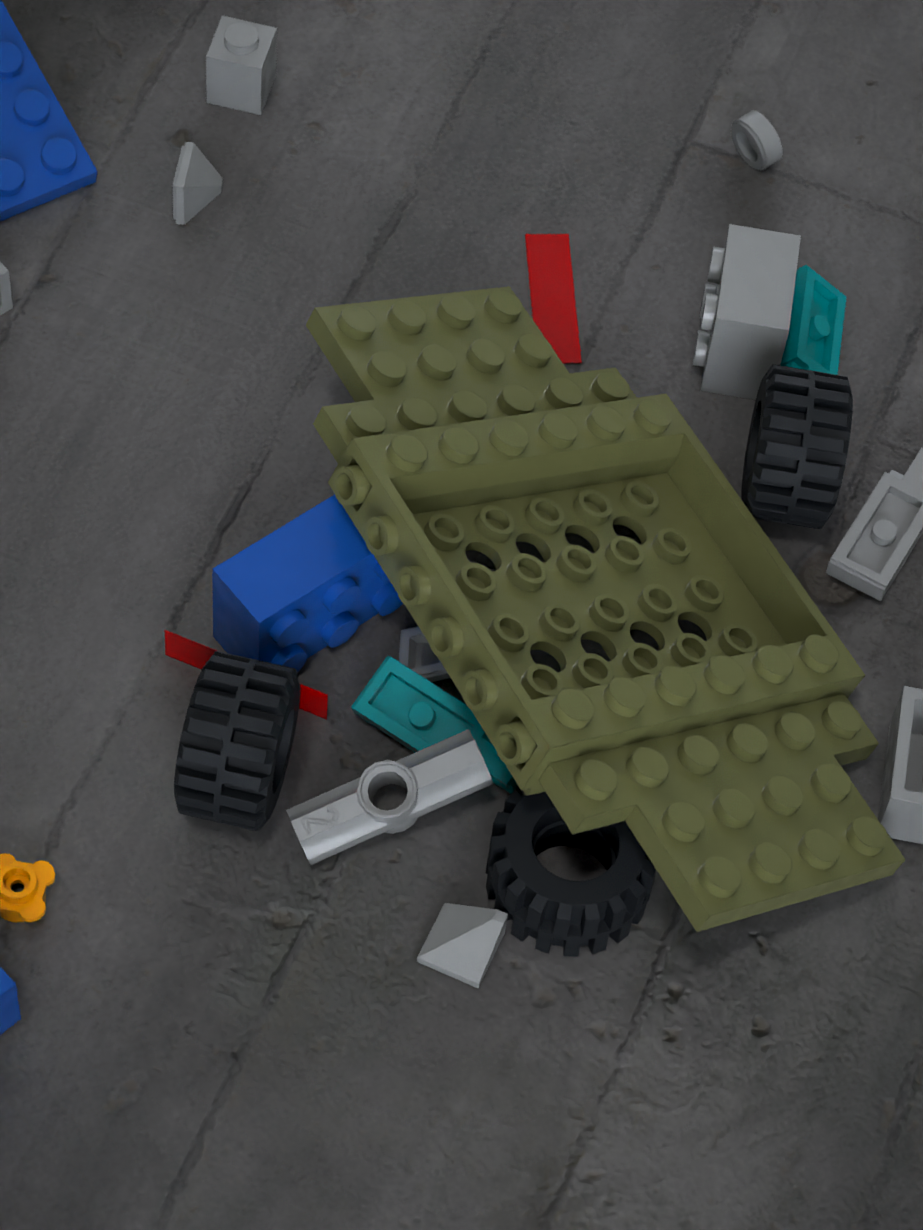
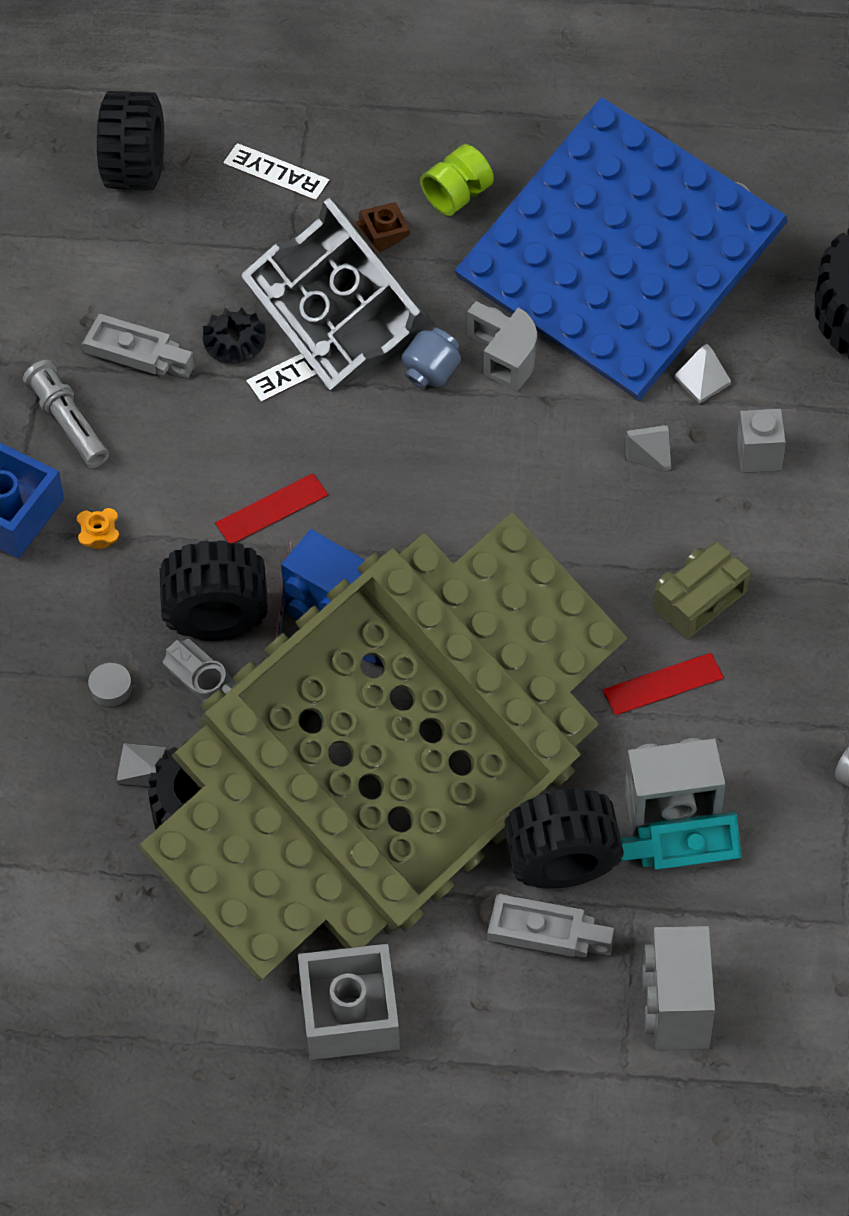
camera: 80 degrees right, 0 degrees up
(76, 658) = (271, 508): none -> red sticker
(95, 97) = (703, 375): none -> light grey slope
(307, 948) = (110, 684): none -> light grey tile
(442, 202) = (700, 589): none -> olive brick

